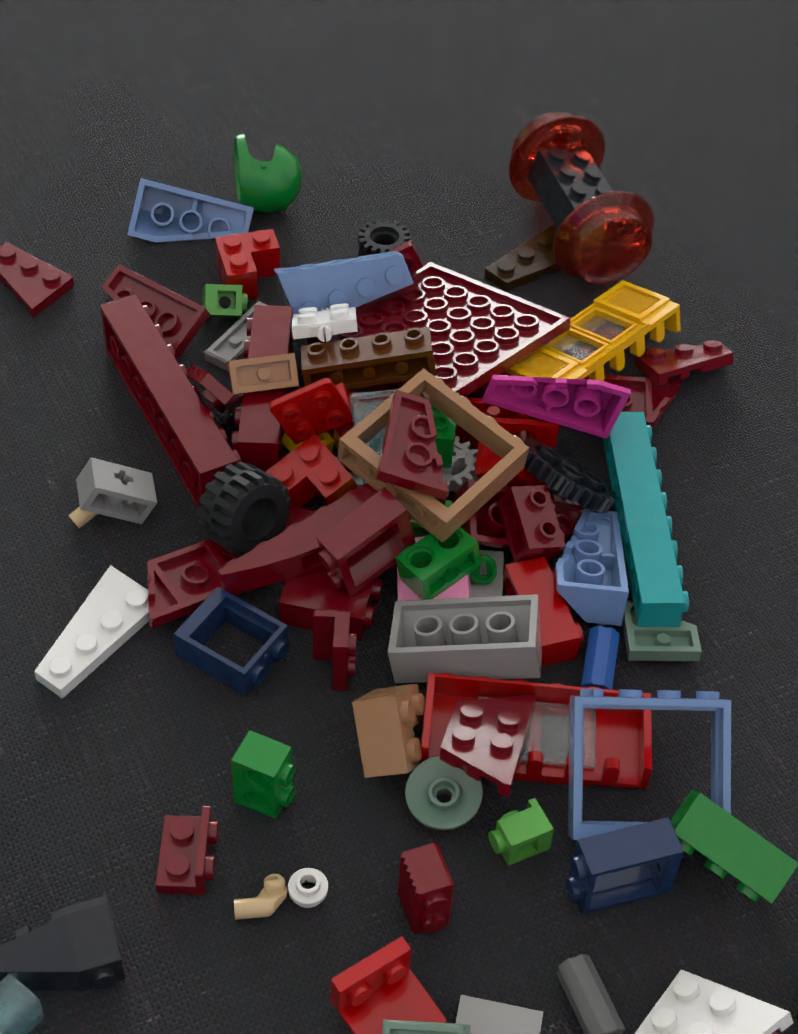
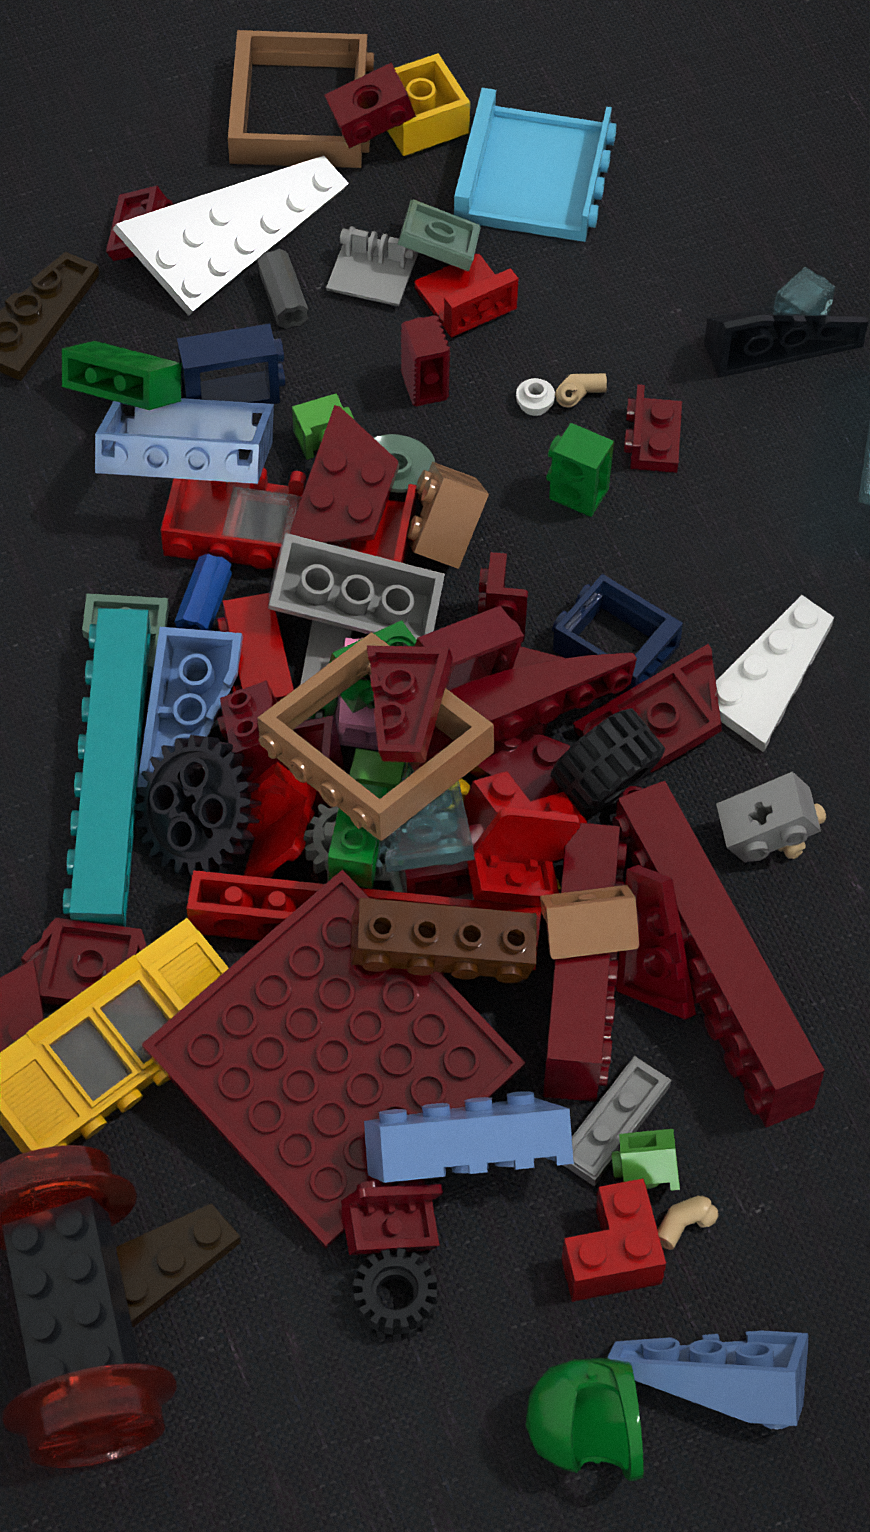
camera: 175 degrees left, 10 degrees up
(175, 314) = (736, 1147): dark red wing -> none
(194, 286) = (682, 1214): none -> tan arm
(324, 323) = (501, 1016): white plate -> none
(573, 403) = (169, 876): dark pink wedge -> none

